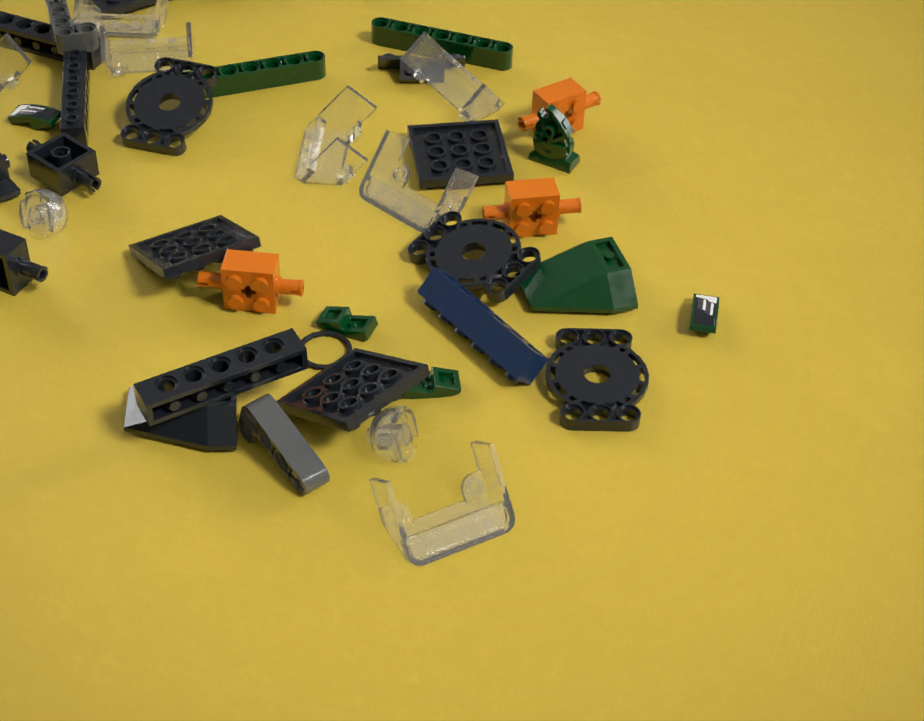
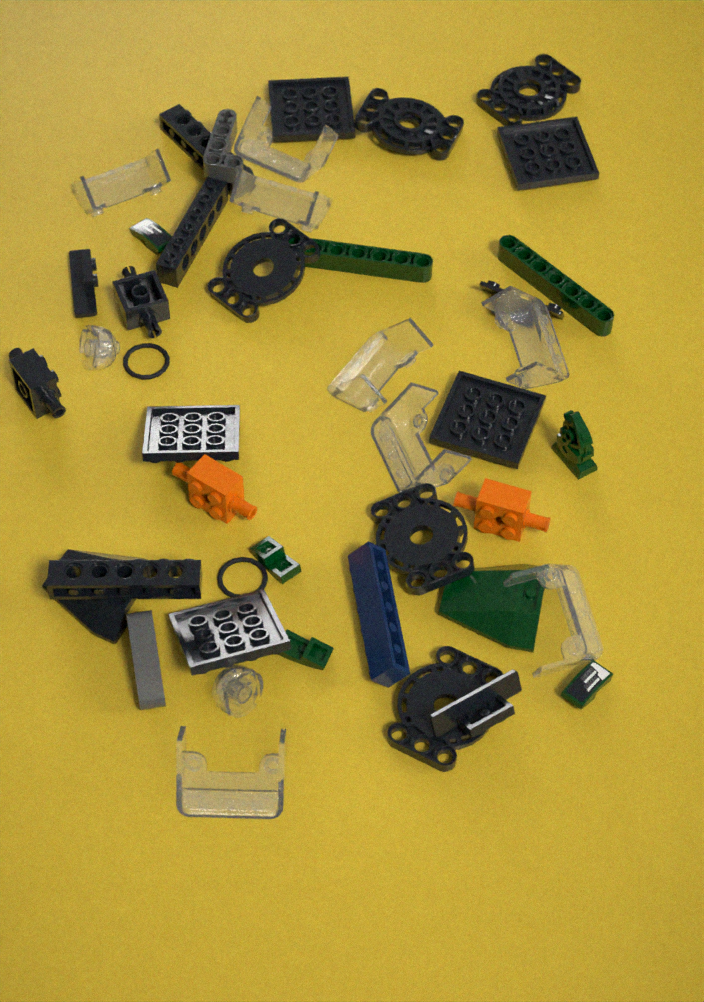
camera: 30 degrees right, 10 degrees up
(101, 227) = (146, 345): none -> black piece
(567, 98) = (607, 408): orange brick -> none
(634, 361) = (479, 708): none -> black bracket
(653, 255) = (585, 640): none -> clear windscreen

